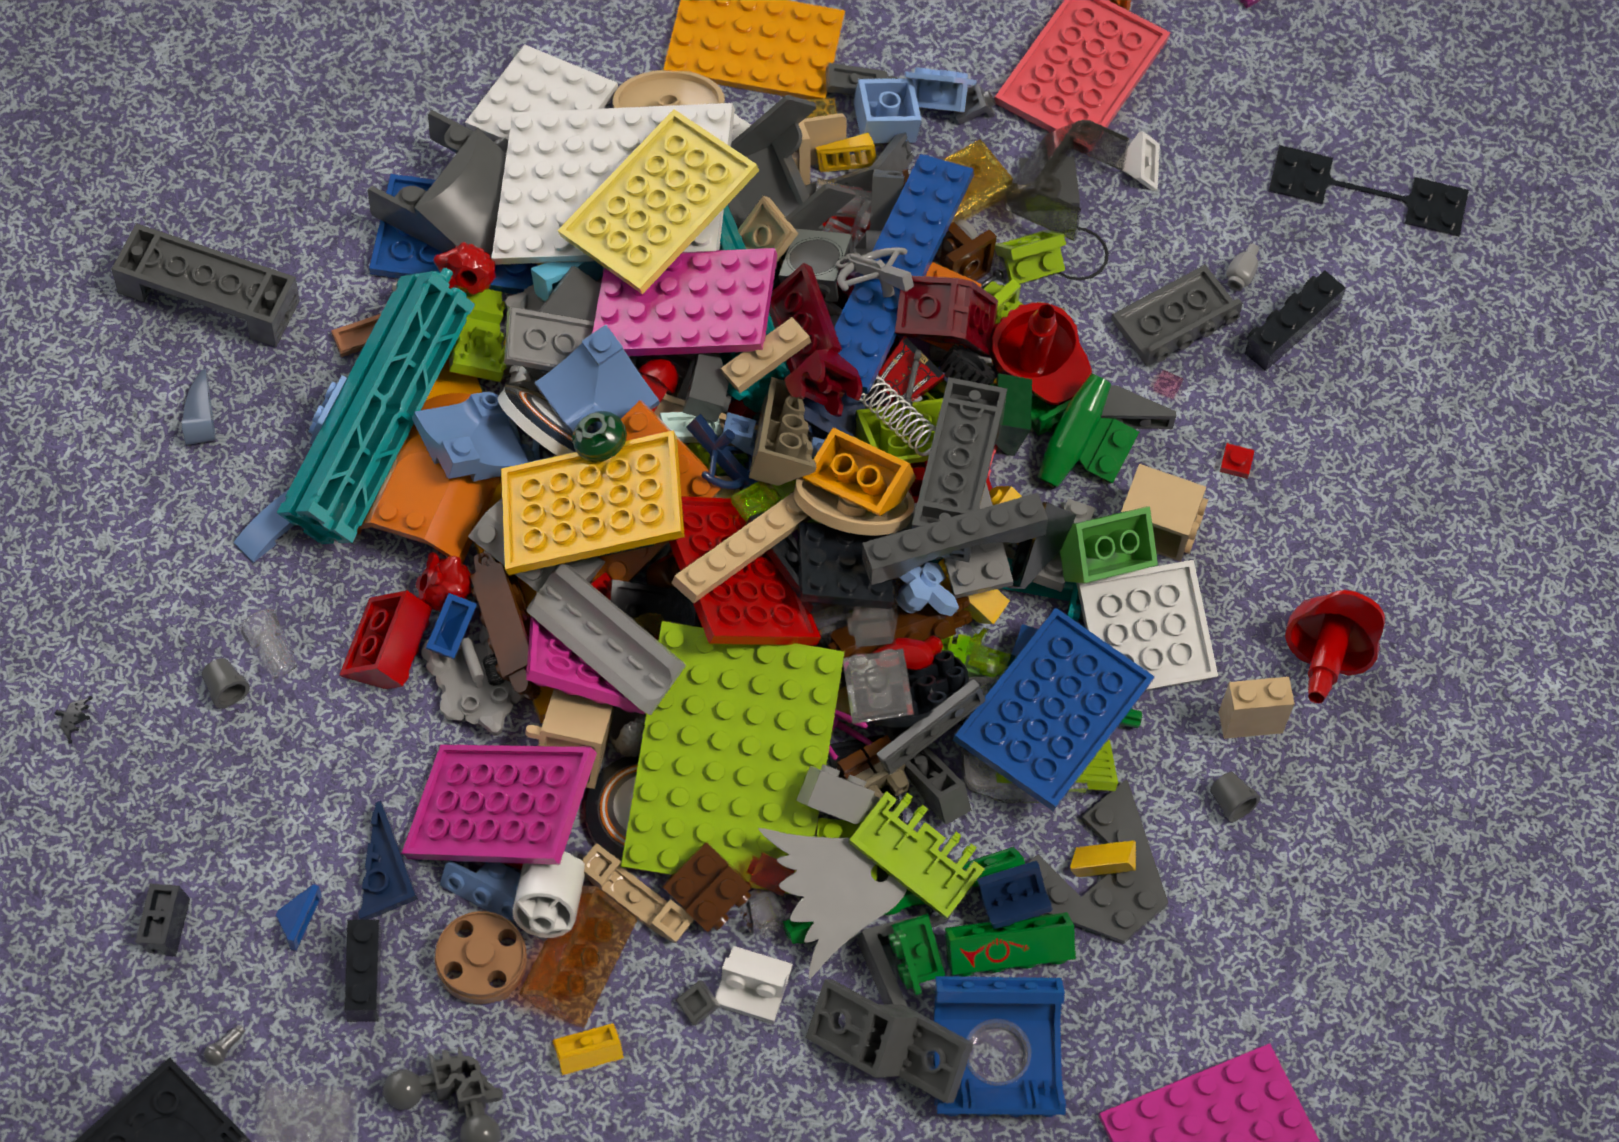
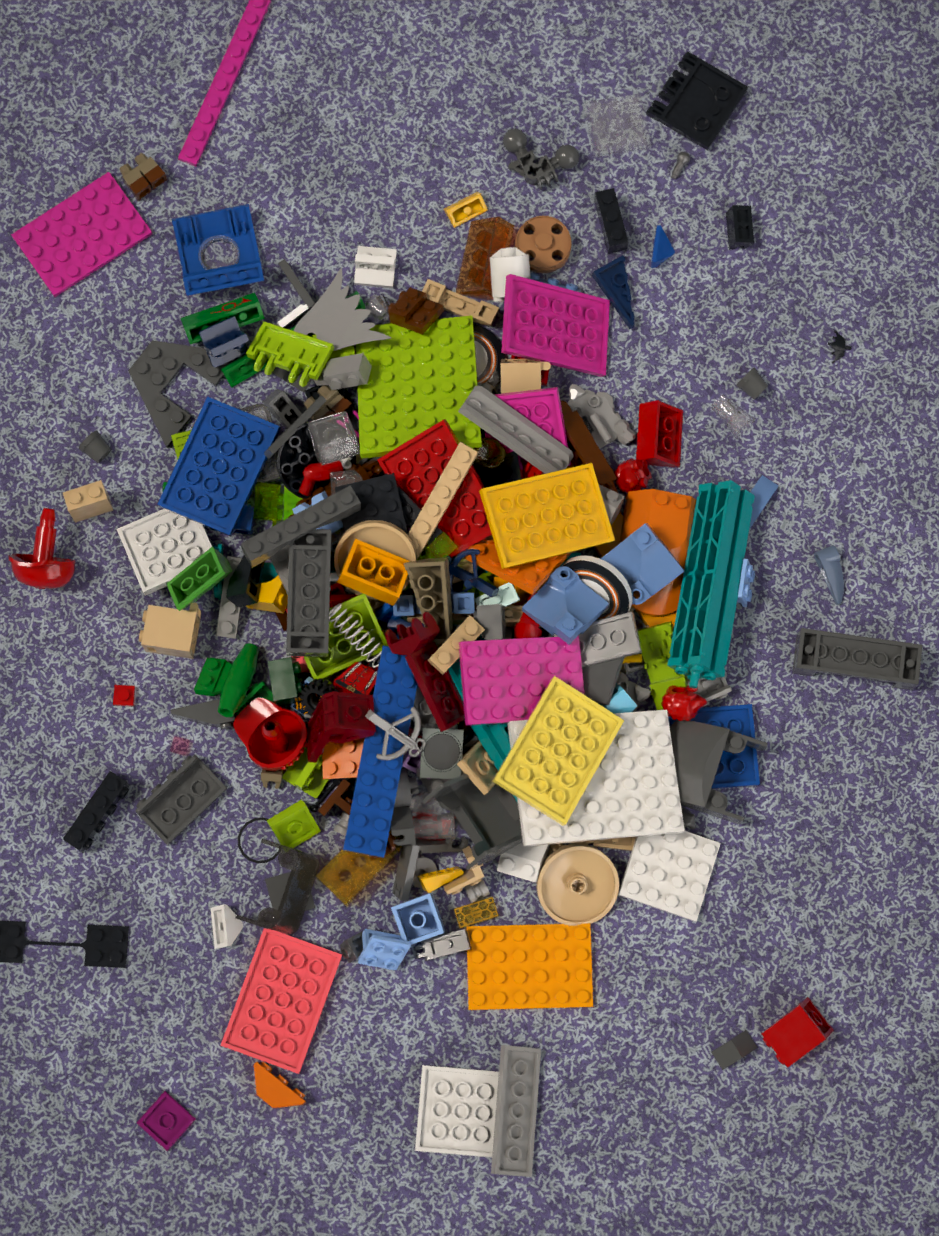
camera: 170 degrees right, 15 degrees up
(353, 337) = (742, 656): nougat tile -> none
(451, 626) = (619, 442): blue slope -> none
(603, 443) = (546, 565): dark green piece -> none
(698, 1002) = (406, 247): dark grey tile -> none
(768, 873) = (383, 325): clear red bracket -> none
(889, 1040) = (282, 237): dark grey bracket -> none
(912, 378) = (355, 657): dark grey hinge -> none
(918, 951) = (280, 299): green bracket -> none
(1104, 859) = (172, 386): yellow slope -> none
(1243, 268) = (138, 850): light grey plant -> none

